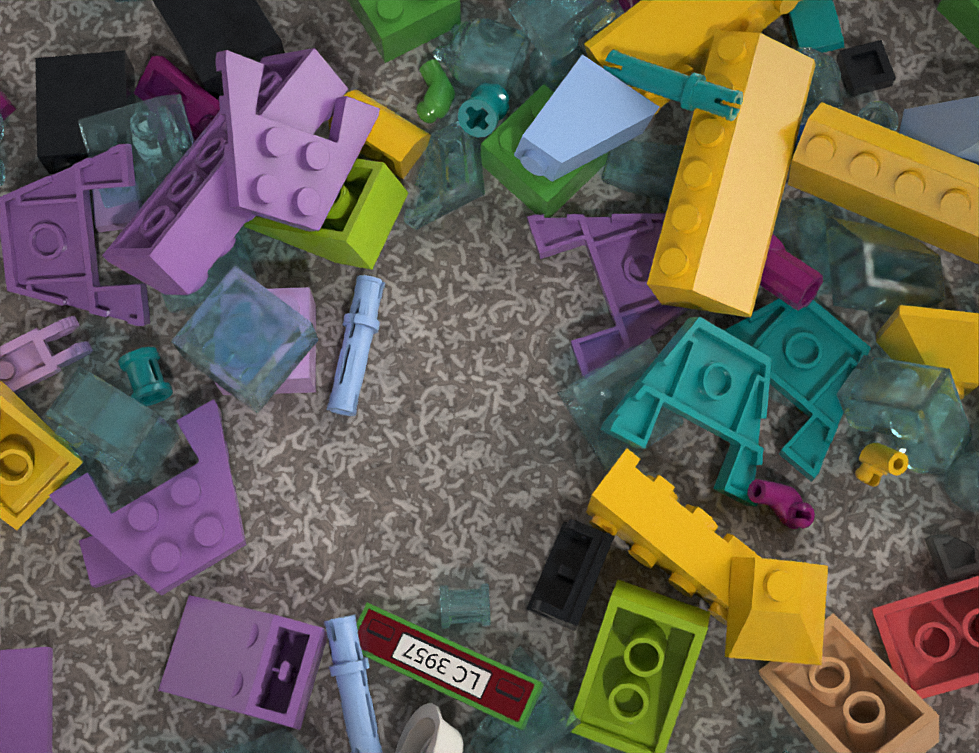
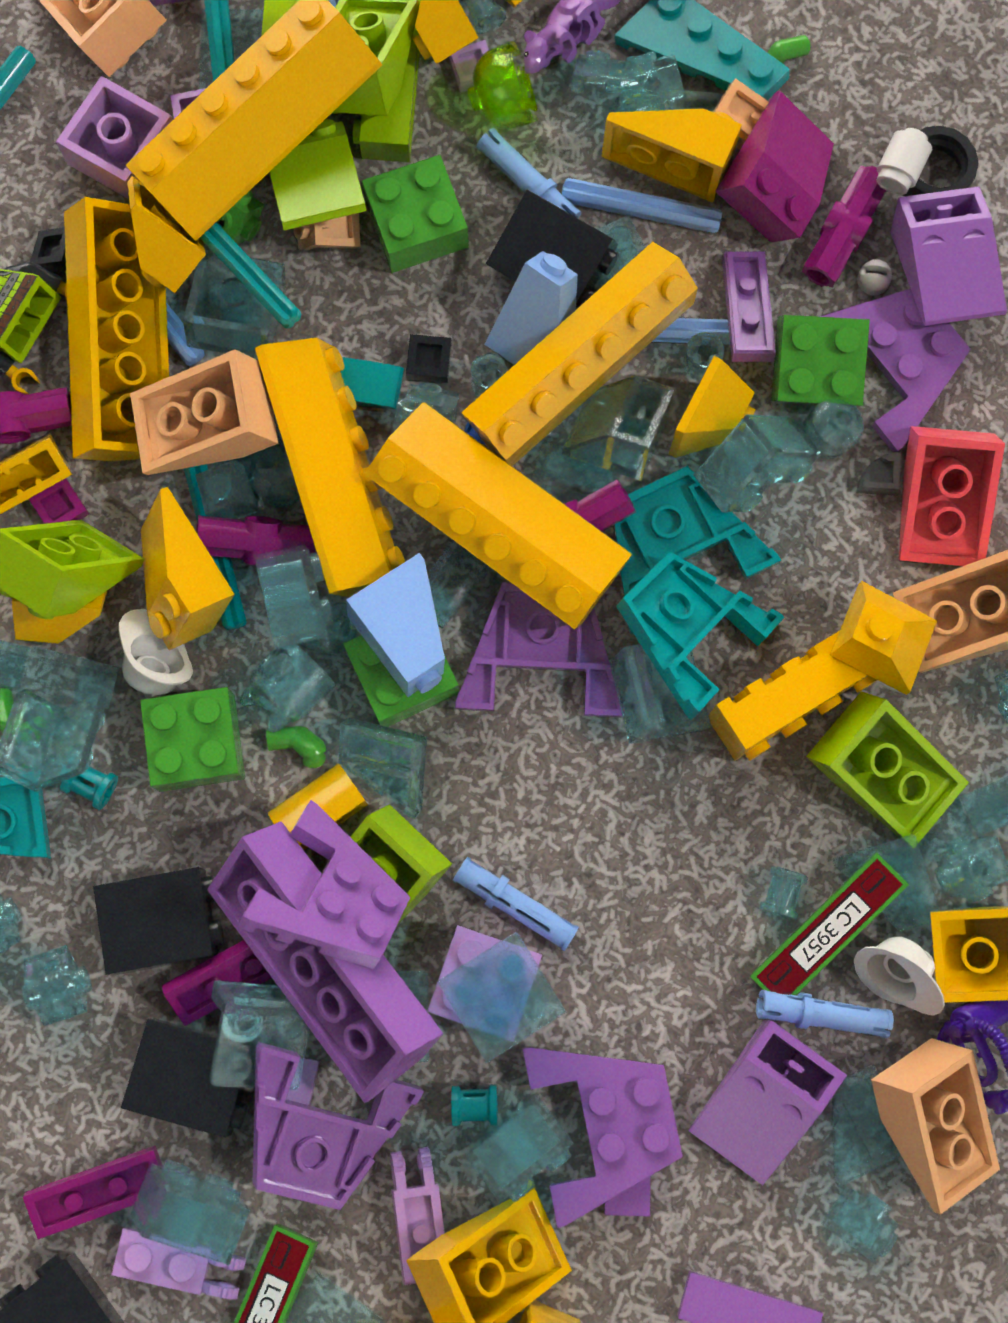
camera: 70 degrees left, 5 degrees up
(472, 116) = (350, 710): teal bush -> none
(570, 573) = (788, 794): black hinge -> none
(690, 90) = (420, 522): teal pin -> none
(783, 501) = (789, 593): magenta arm -> none
(879, 461) = (785, 501): yellow arm -> none

